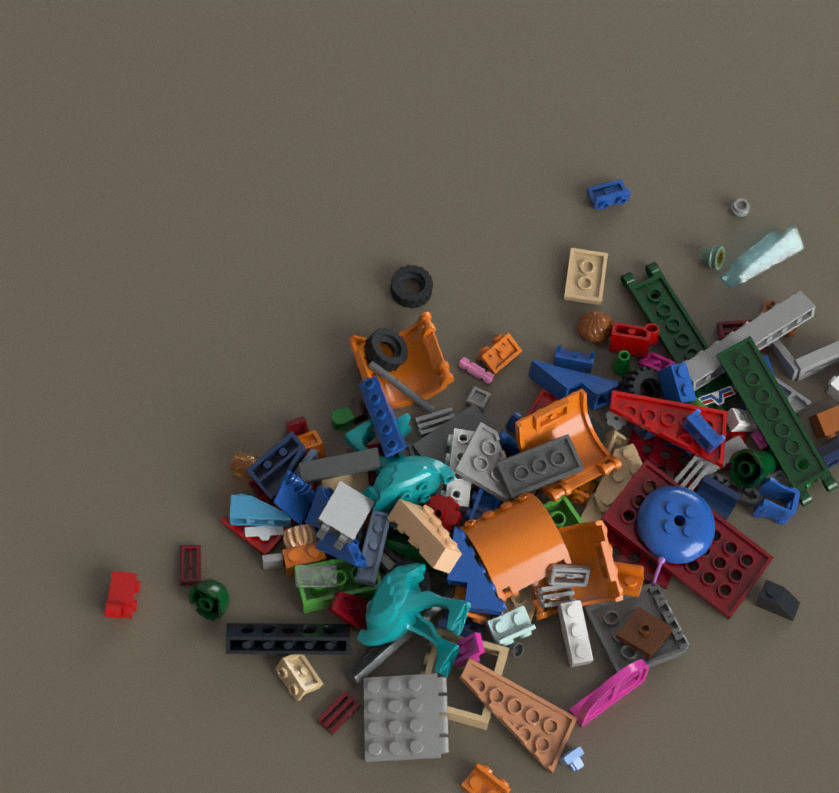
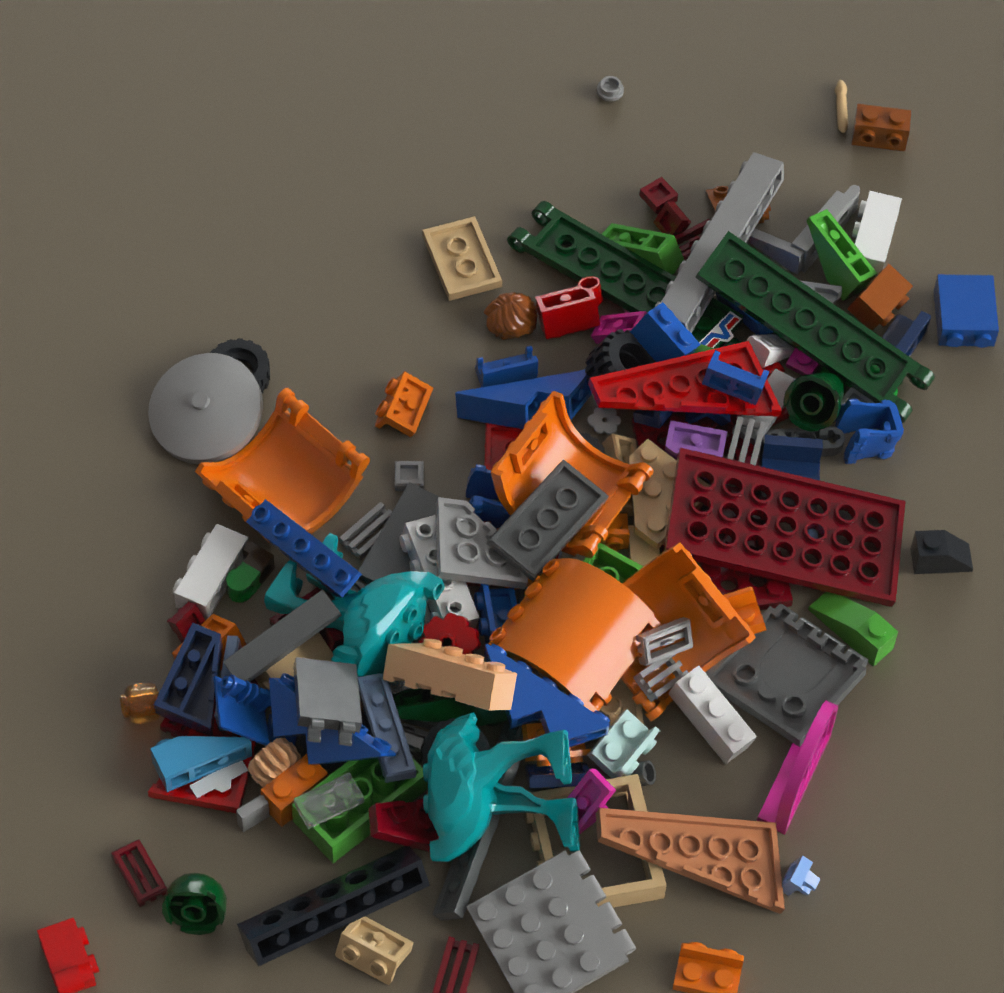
camera: 25 degrees left, 5 degrees down
(319, 408) = (208, 570): none -> white brick
(378, 300) = (205, 408): none -> light grey dish
(392, 340) = (258, 451): black tyre -> none
(401, 387) = (300, 503): dark grey bar -> none
(476, 370) = (386, 440): bright pink axle -> none
(608, 194) = (432, 143): blue bracket -> none
(621, 363) = (572, 346): green cone -> none
(644, 632) = (800, 670): reddish brown plate -> none
(661, 560) = (772, 566): medium lavender hinge -> none
(662, 458) = (695, 438): none -> medium lavender wing
(667, 539) = (754, 533): blue brick -> none
(697, 620) = (856, 625): none -> bright green slope
(705, 321) = (651, 245): none -> bright green slope
(713, 256) = (611, 163): sand green piece -> none
(730, 290) = (657, 194): none -> dark red tile
(730, 310) = (671, 219): none -> dark red tile
(763, 255) = (675, 133): clear light blue wedge -> none
(820, 381) = (839, 256): none -> bright green slope

